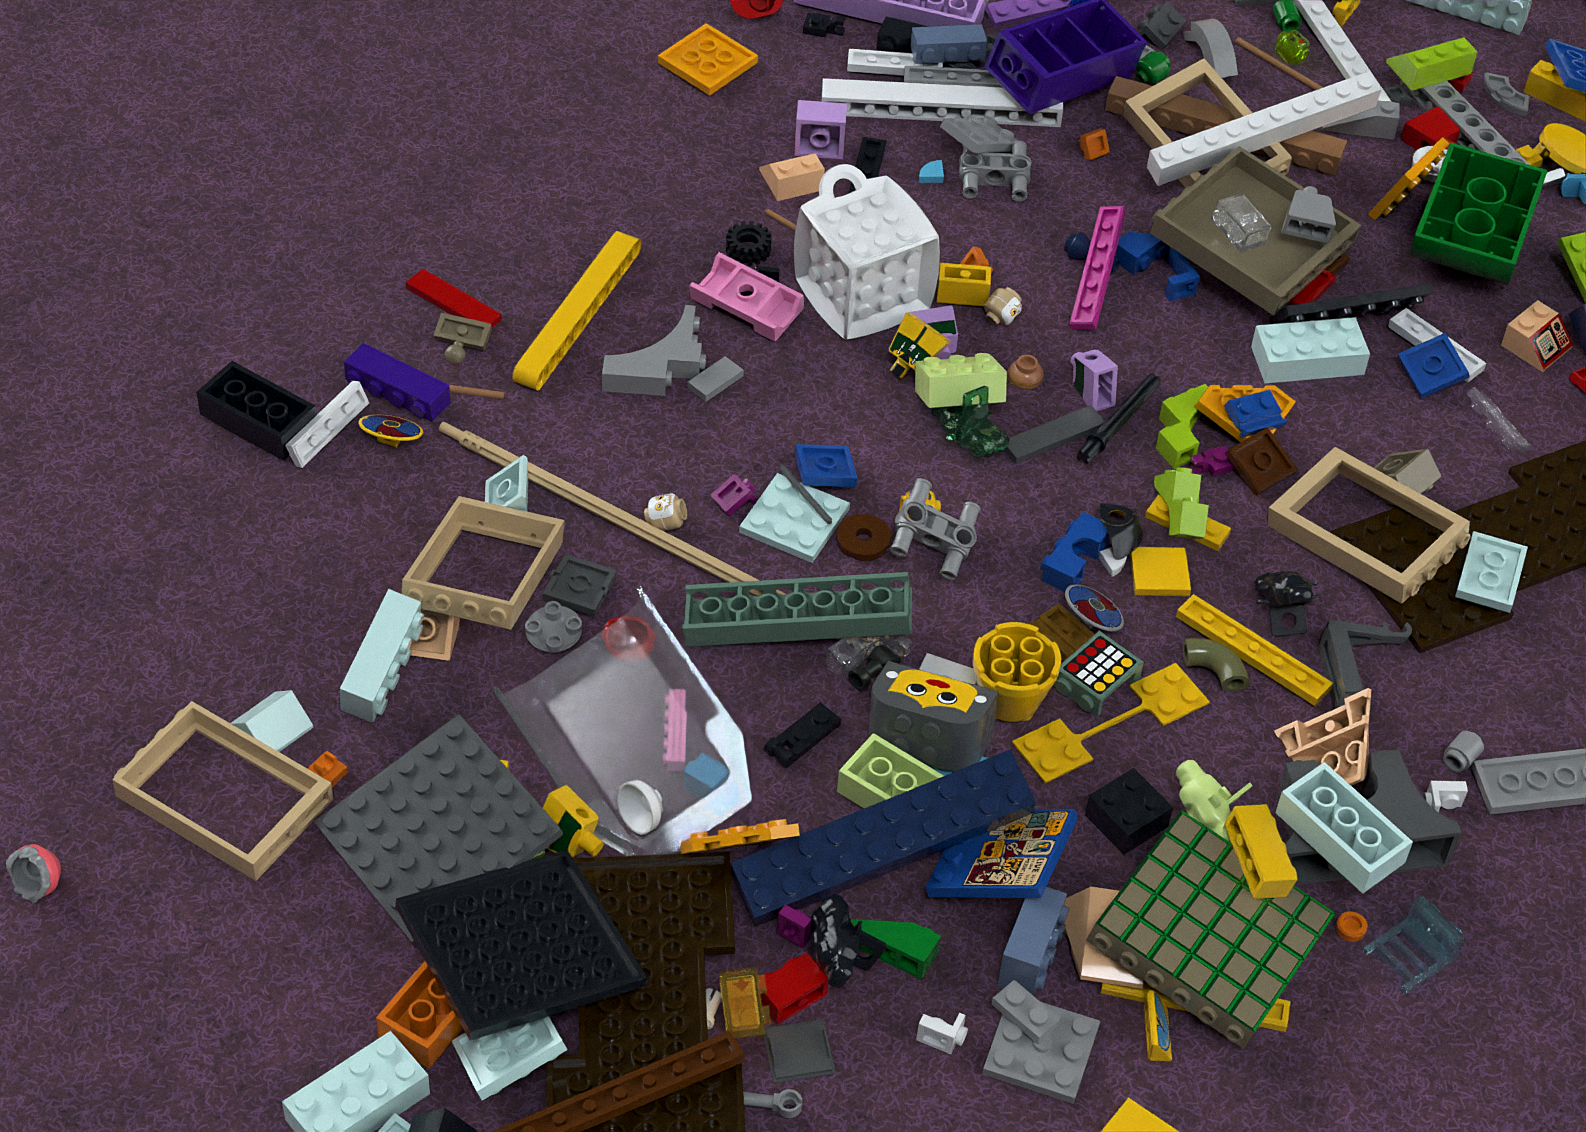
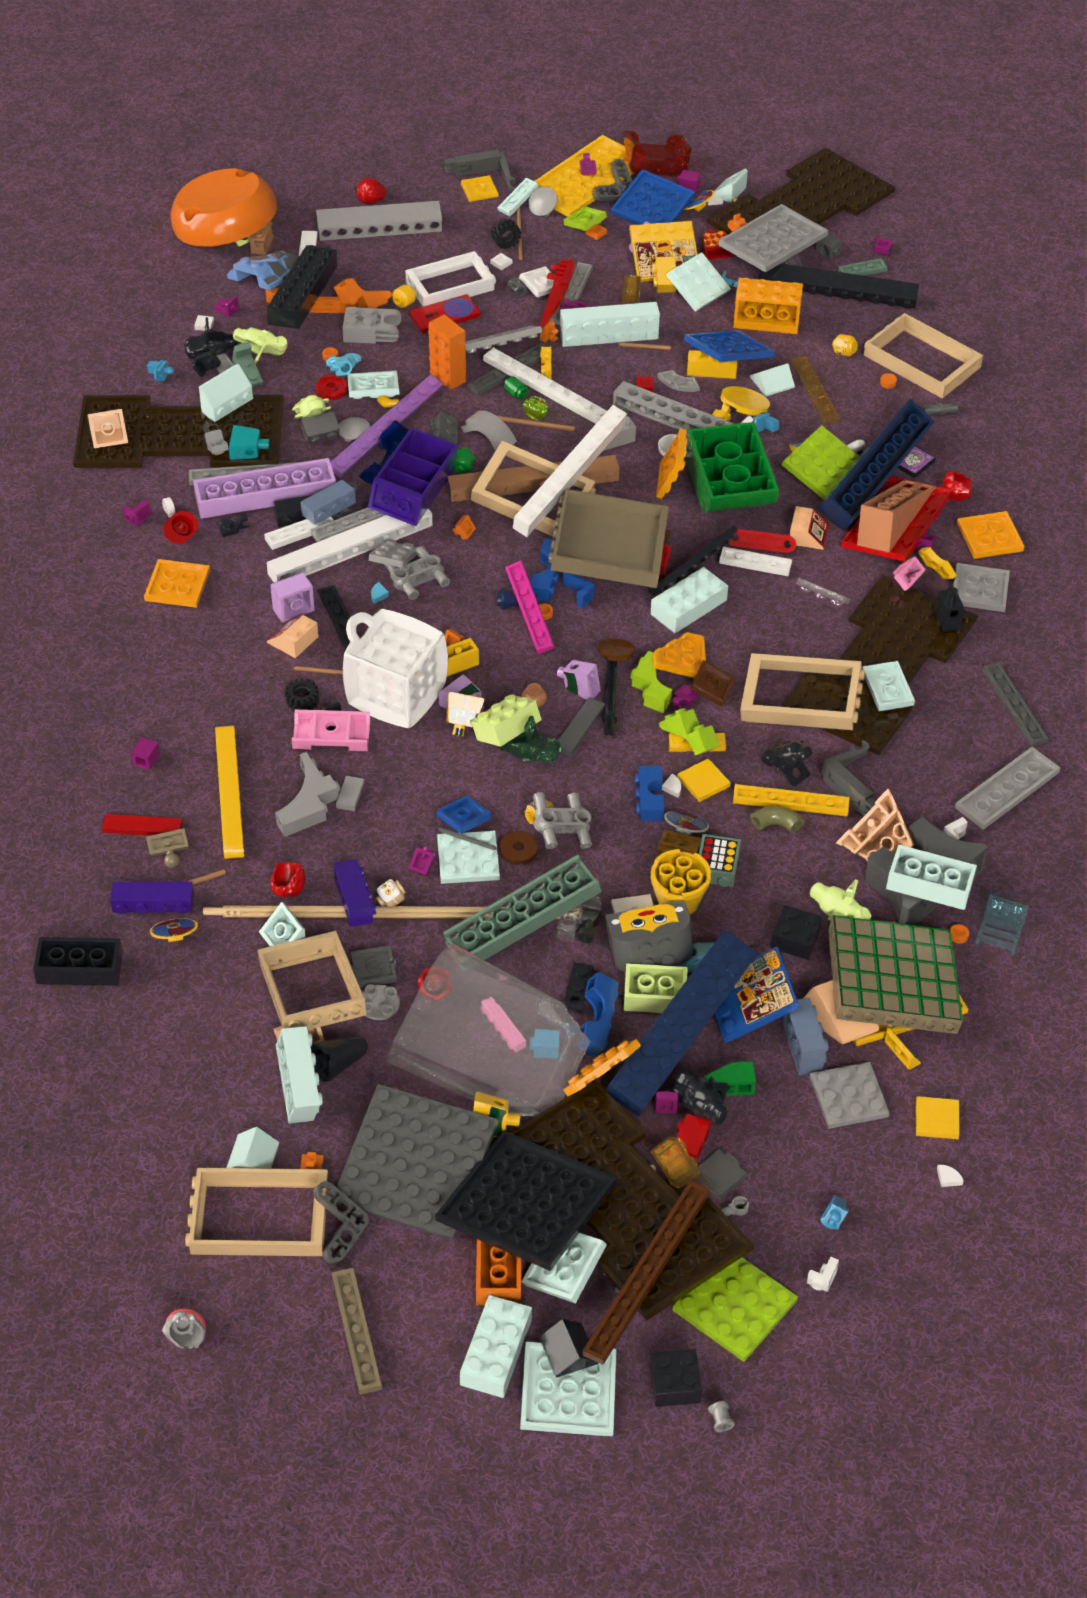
camera: 30 degrees left, 0 degrees up
(217, 987) = (356, 1331): none -> dark tan plate
(305, 860) = (348, 1222): none -> dark grey beam
(327, 424) = (130, 947): white tile -> none
(452, 661) = (337, 1055): none -> black cone
(519, 224) = (145, 753): none -> magenta brick
(558, 437) = (288, 879): none -> red hair
(620, 488) = (354, 892): none -> dark purple brick
(639, 806) = (523, 1086): white piece -> none
(818, 755) = (601, 994): none -> blue arch
(941, 1035) = (792, 1118): white bracket -> none
(1002, 306) = (491, 660): tan head -> none
(1026, 1011) = (830, 1079): light grey plate -> none
(1057, 751) = (760, 852): yellow hinge -> none
(1118, 283) = (547, 611): none -> orange tile
(1124, 534) = (669, 766): black piece -> none
(1169, 366) = (616, 649): none -> reddish brown tile
(1241, 222) = (605, 538): clear brick -> none
(1255, 413) = (690, 655): blue plate -> none
(1261, 851) = (892, 915): yellow brick -> none
(1310, 216) = (639, 514): light grey torso -> none
(1411, 468) = (798, 645): dark tan slope -> none
(1429, 129) = (656, 426): red torso -> none
(1433, 365) = (765, 575): blue plate -> none
(1434, 63) = (630, 380): lime slope -> none
(1463, 751) = (945, 800): light grey brick -> none
(1464, 324) = (763, 541): none -> red plate
(1495, 36) = (645, 346): none -> medium nougat axle

